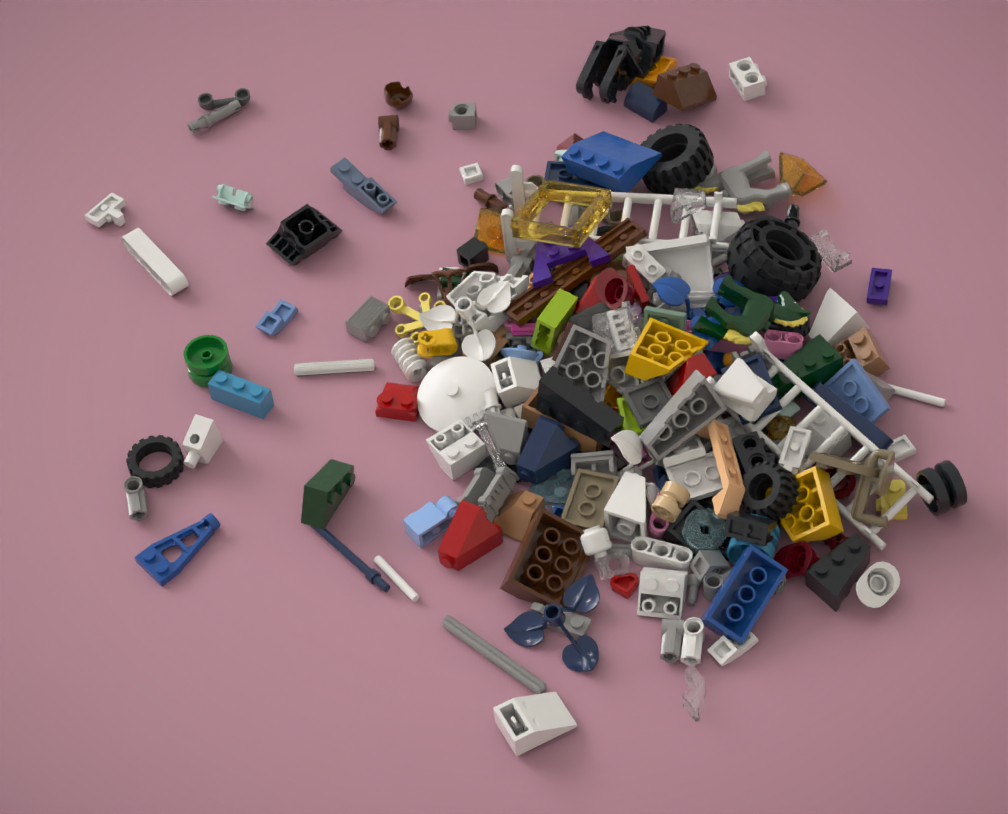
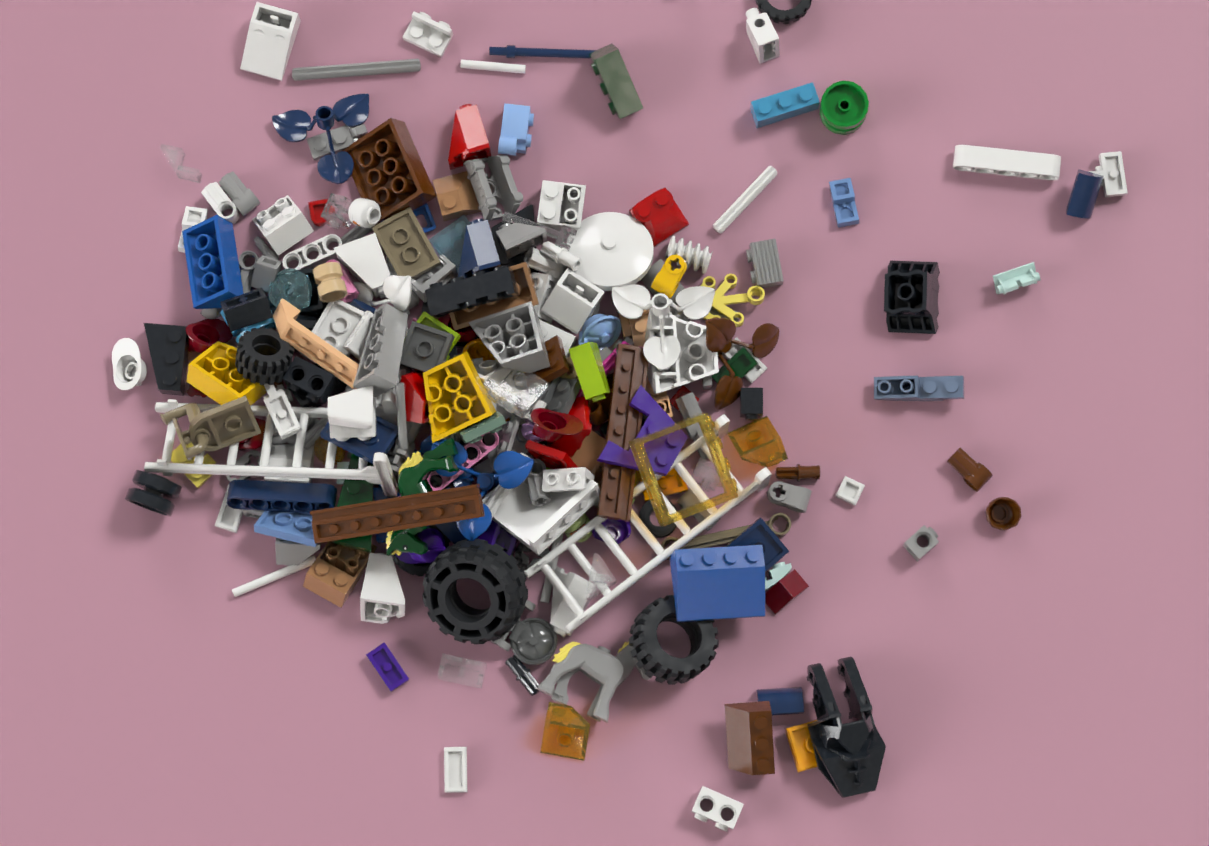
camera: 130 degrees right, 30 degrees up
(136, 208) = (1084, 194): none -> dark blue brick
(207, 103) = (1165, 361): dark grey bar -> none
(207, 120) = (1140, 350): light grey pin -> none
(416, 635) = (428, 33): none -> white bracket
(715, 365) = (401, 416): none -> light grey bar
(780, 310) = (397, 513): none -> reddish brown plate
(893, 208) = (455, 769): none -> white tile

